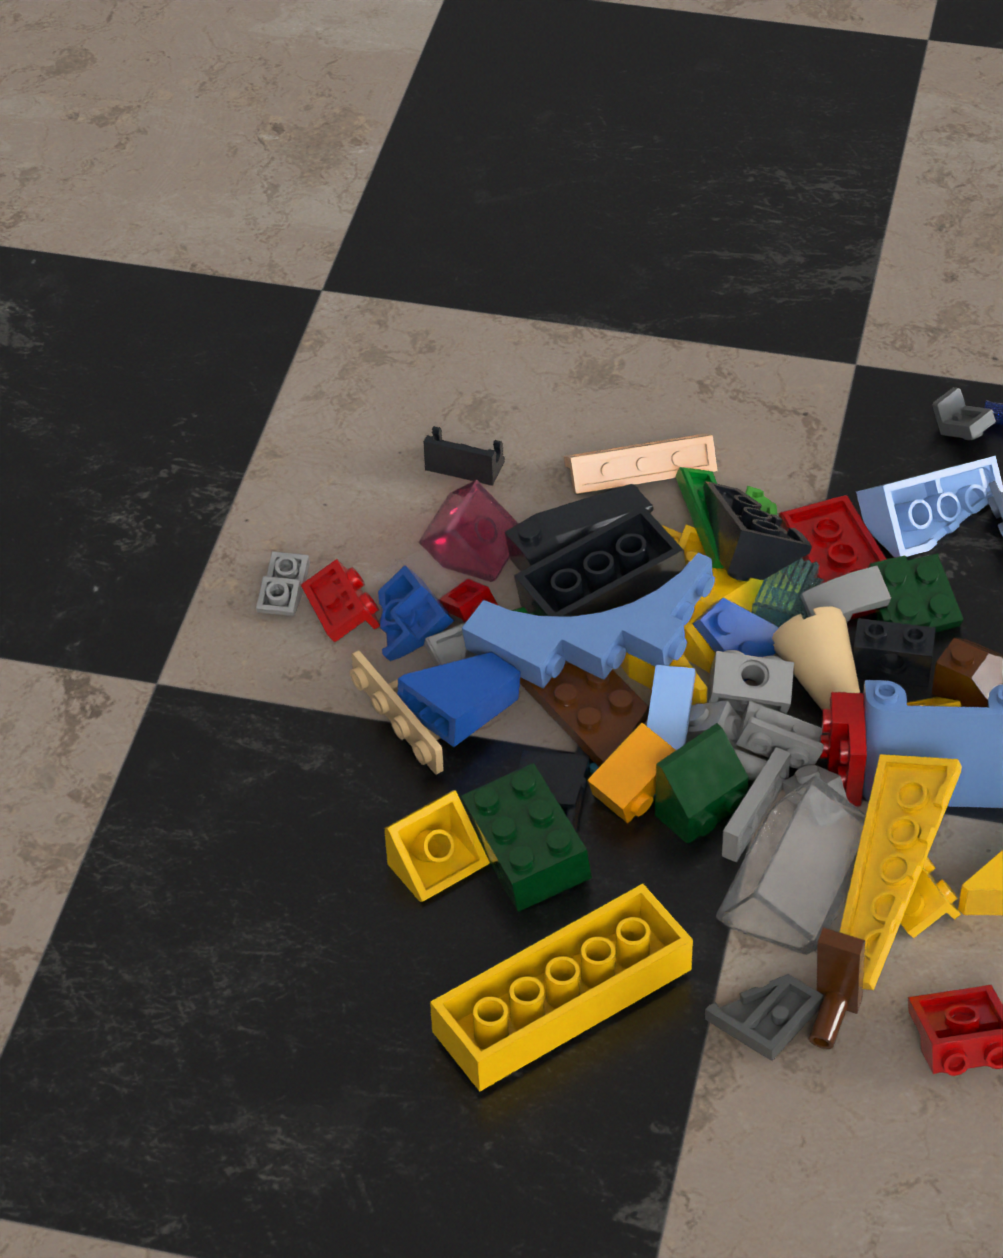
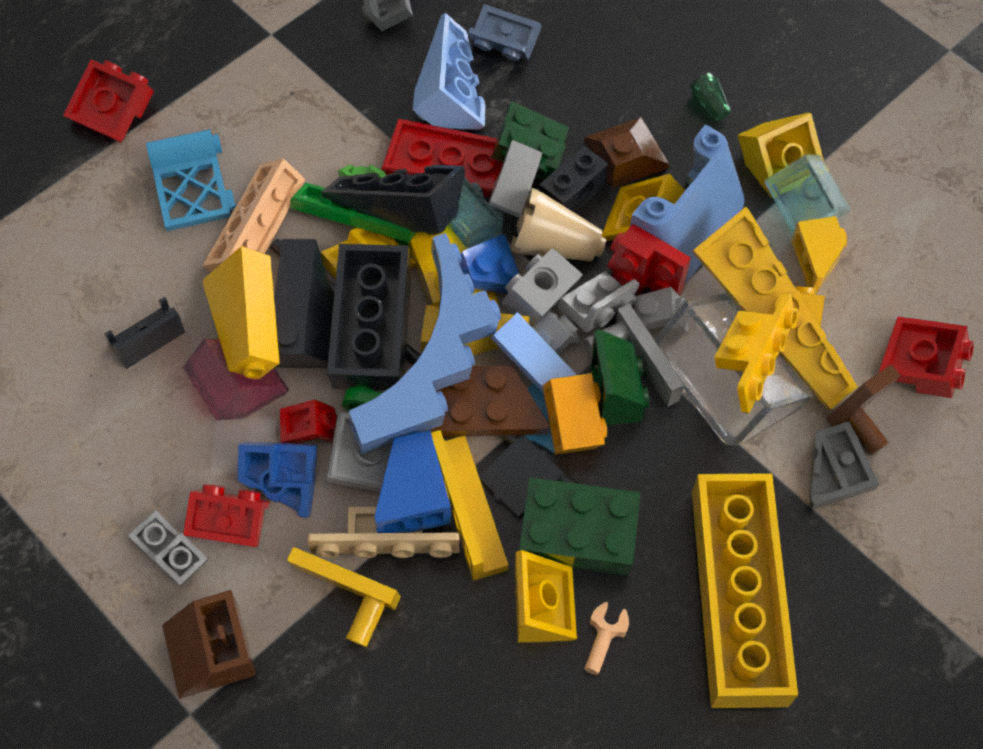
camera: 60 degrees left, 15 degrees up
(221, 653) = (208, 645): none -> reddish brown slope
(347, 733) = (375, 594): none -> yellow piece
(445, 918) = (605, 634): none -> light nougat bar
(486, 745) = (469, 508): none -> yellow fence
(527, 494) = (244, 312): none -> yellow slope
(655, 379) = (189, 155): none -> dark azure piece
(668, 299) = (108, 99): none -> red plate
(806, 849) = (754, 346): none -> yellow bracket

